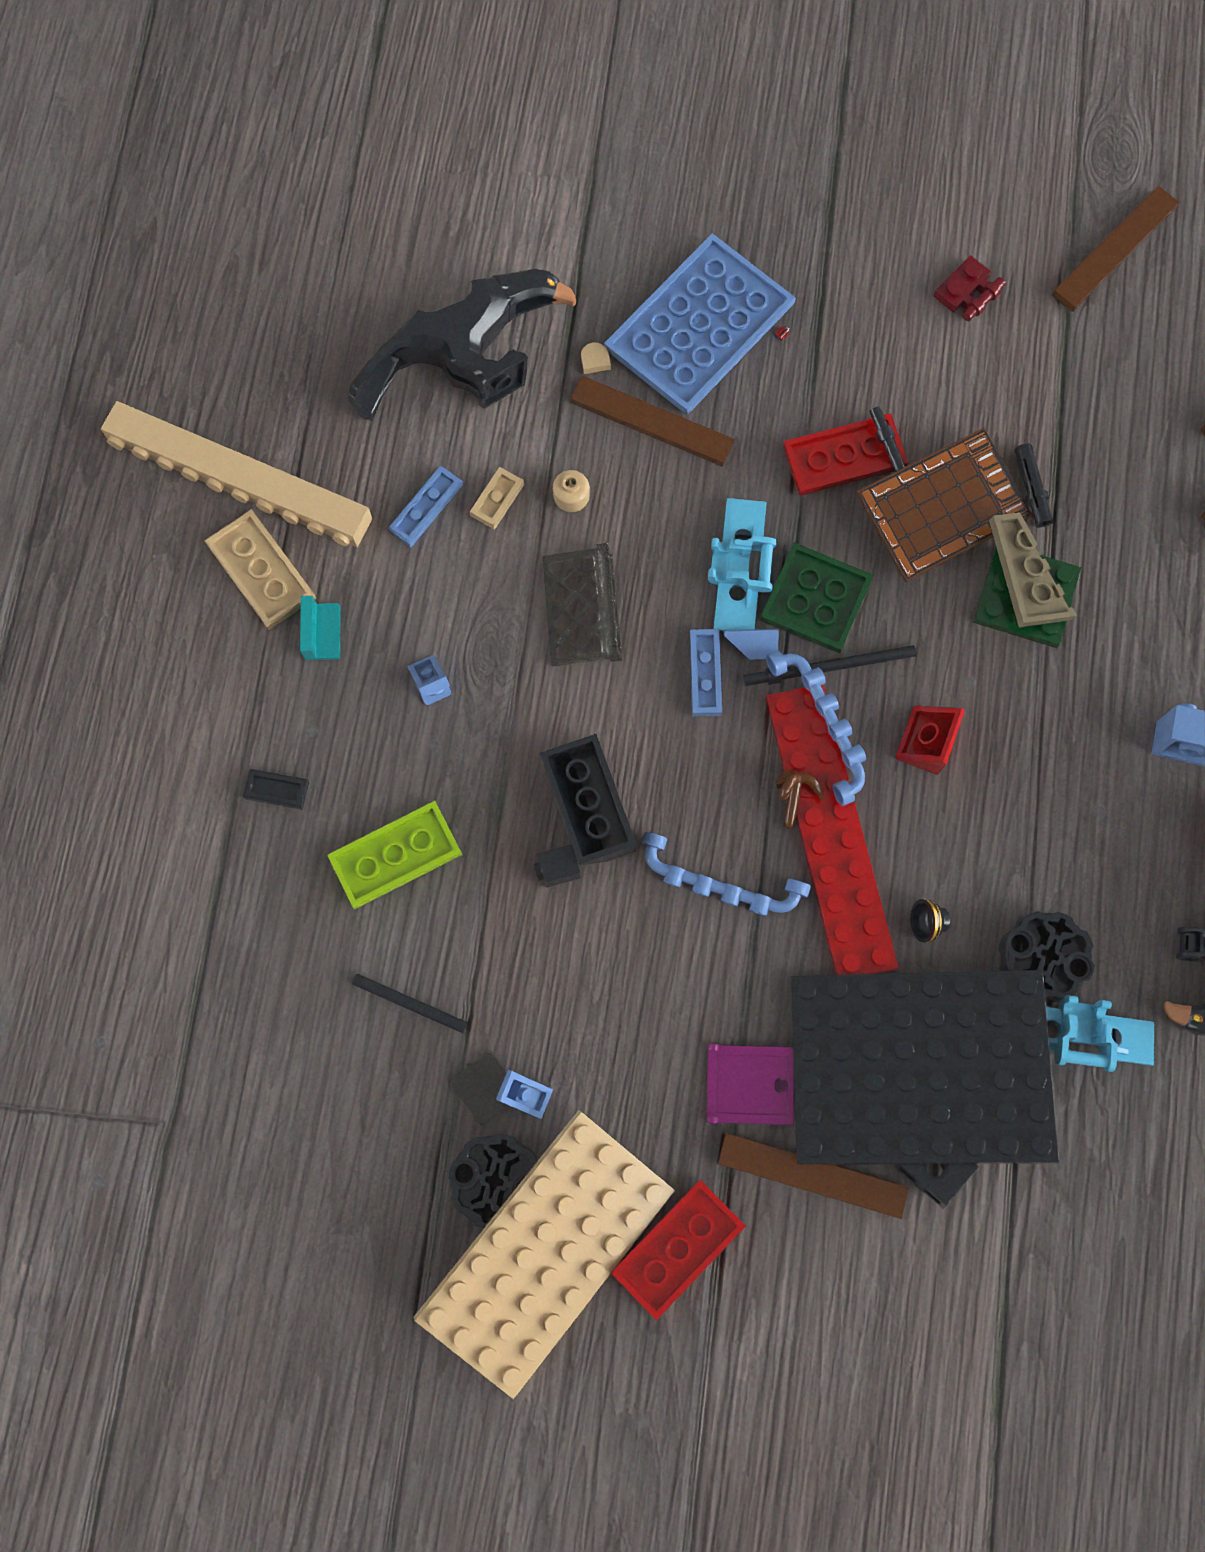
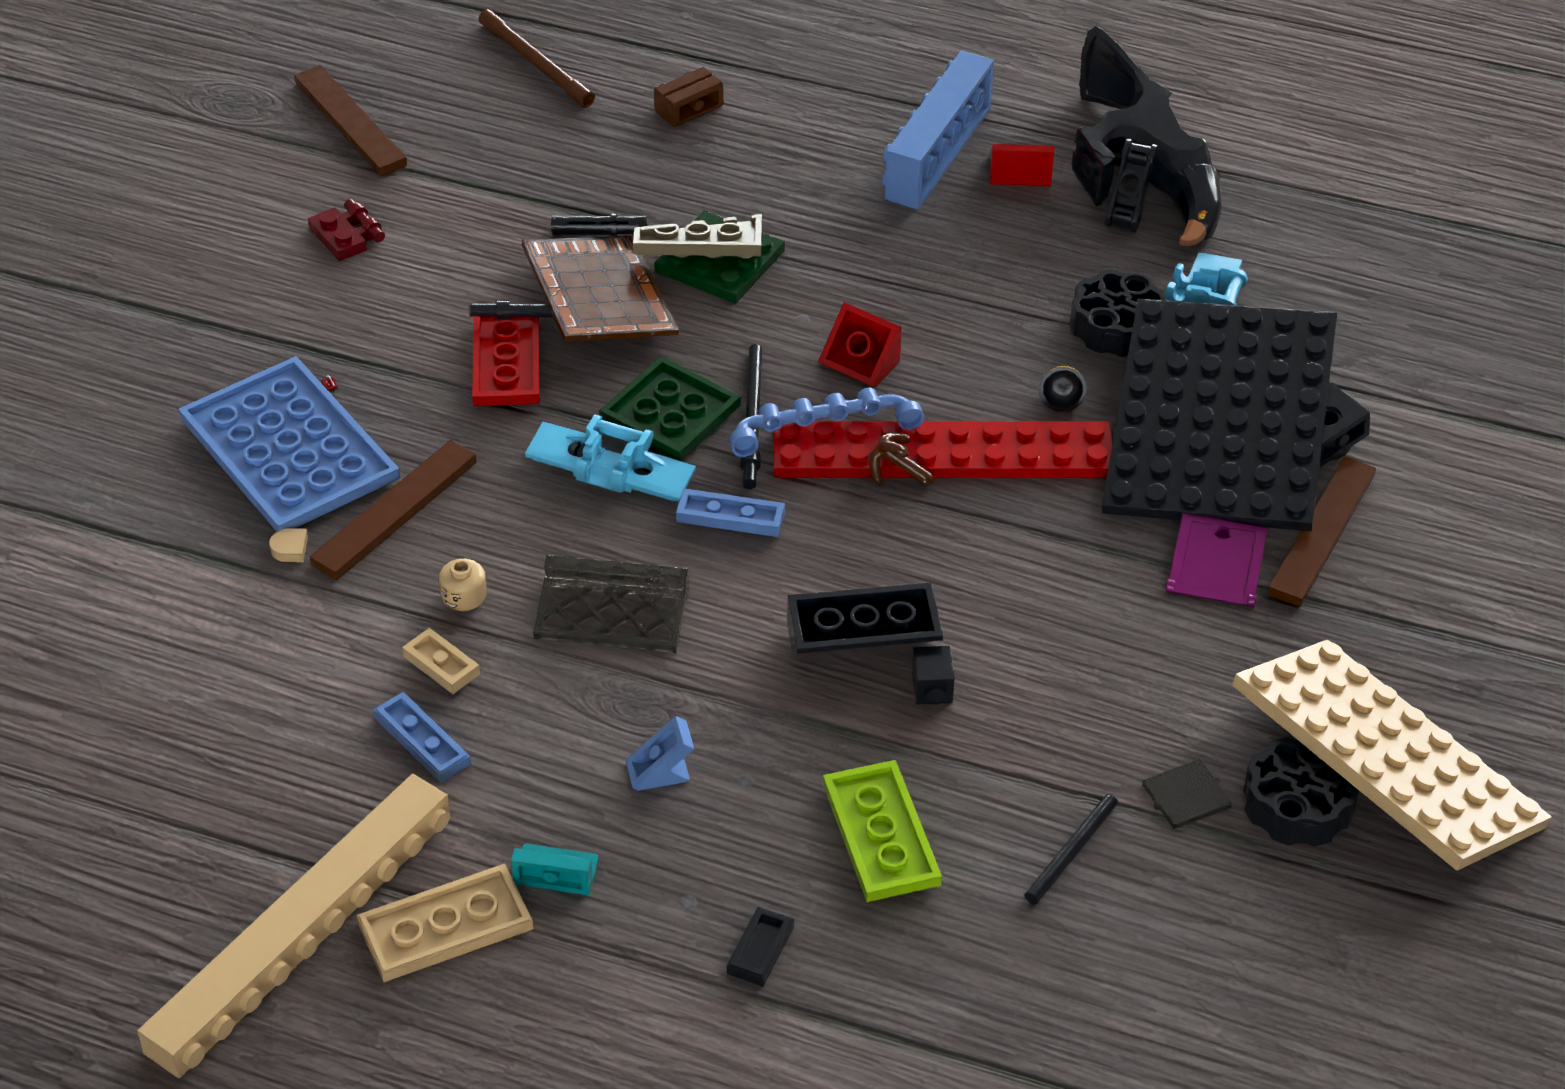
camera: 80 degrees left, 30 degrees down
(459, 336) = (225, 647): black animal -> none
(524, 1094) = (1197, 751): medium blue slope -> none
(678, 1249) = (1393, 647): red plate -> none
(730, 894) = (998, 537): medium blue bar -> none
(754, 642) = (708, 464): medium blue tile -> none

